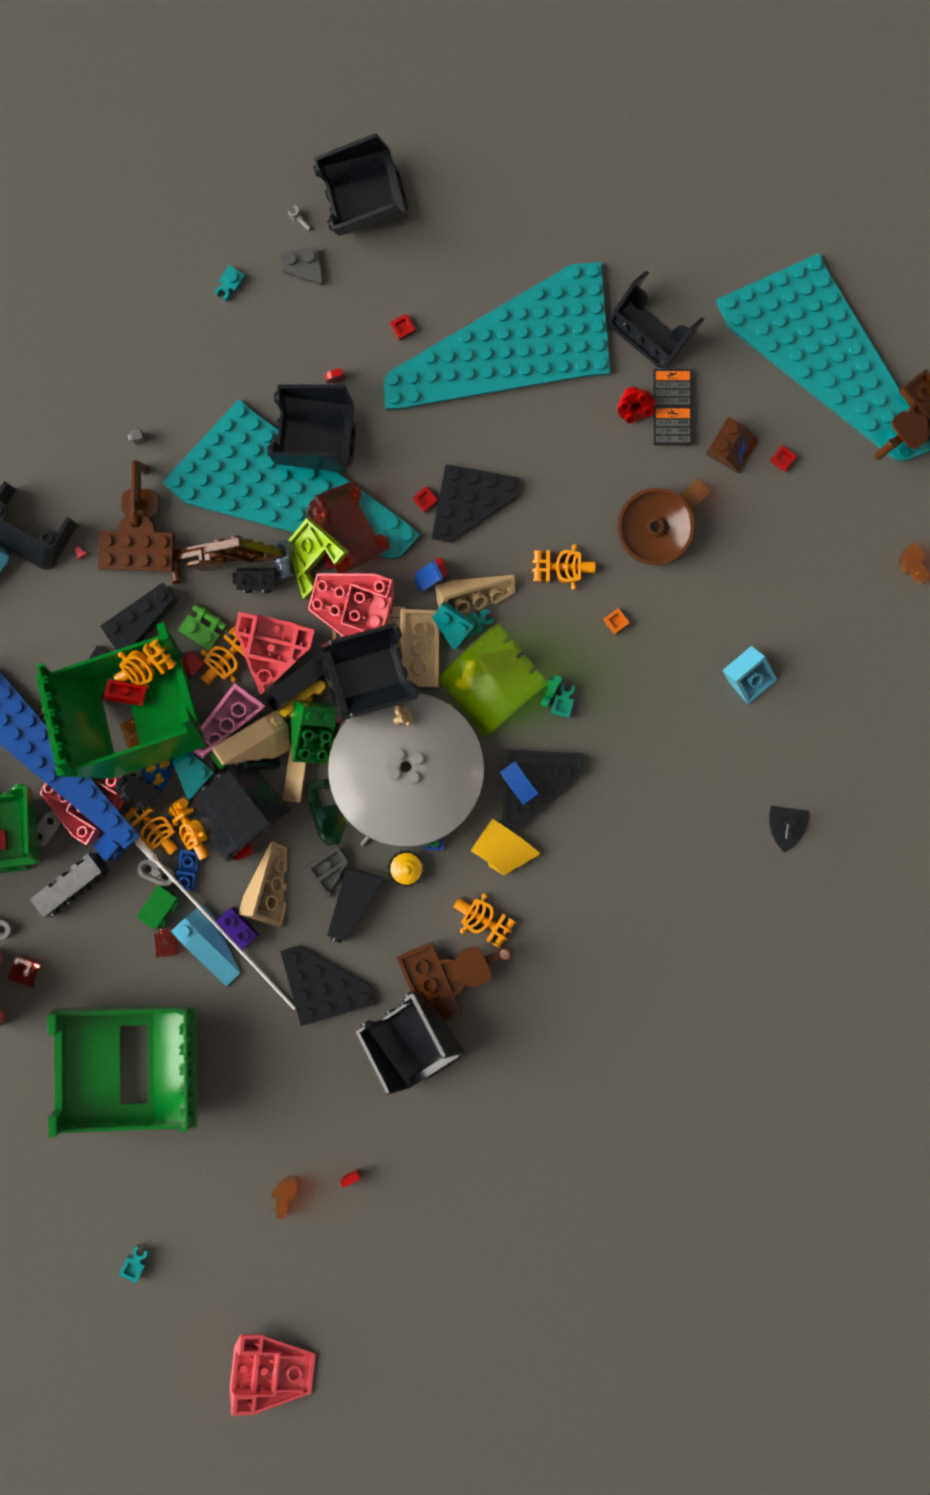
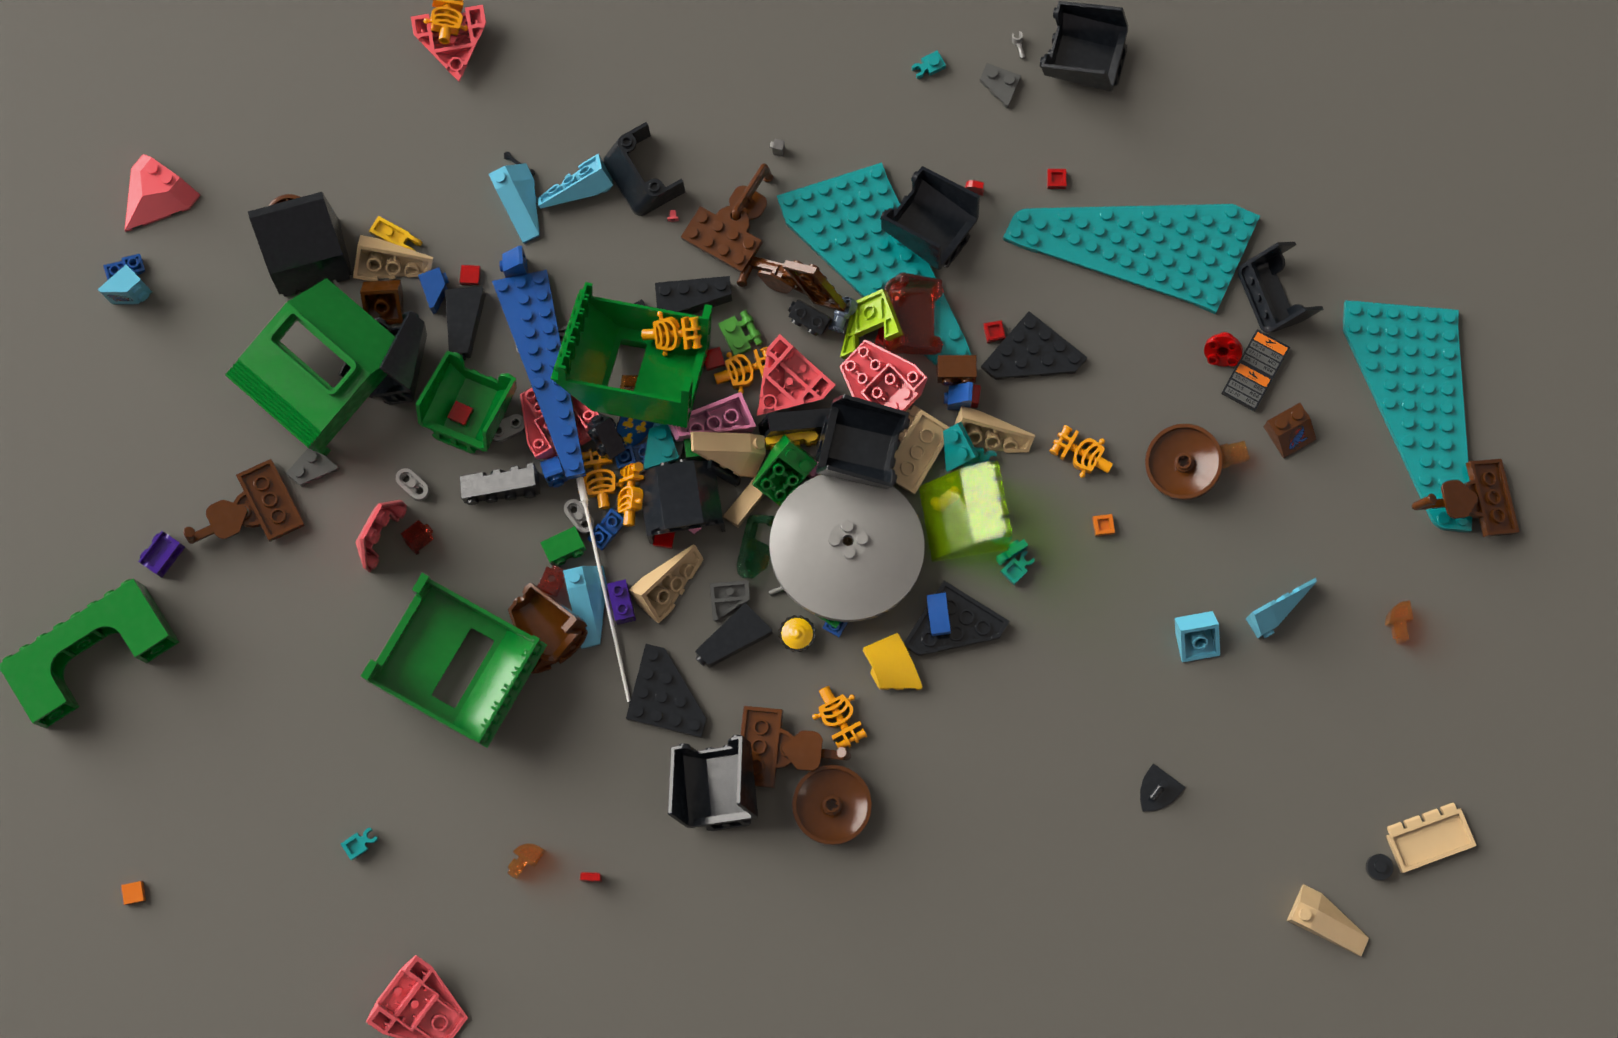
camera: 30 degrees right, 10 degrees down
(125, 692) = (644, 348): red plate -> none
(171, 792) = (631, 455): none -> blue slope
(185, 986) = (551, 622): none -> reddish brown cone
(403, 715) = (870, 496): tan plant -> none
(413, 555) = (956, 369): none -> reddish brown slope
(520, 1000) = (831, 805): none -> reddish brown dish
(783, 458) = (1331, 467): red tile -> none
(804, 619) = (1269, 616): none -> medium azure wedge

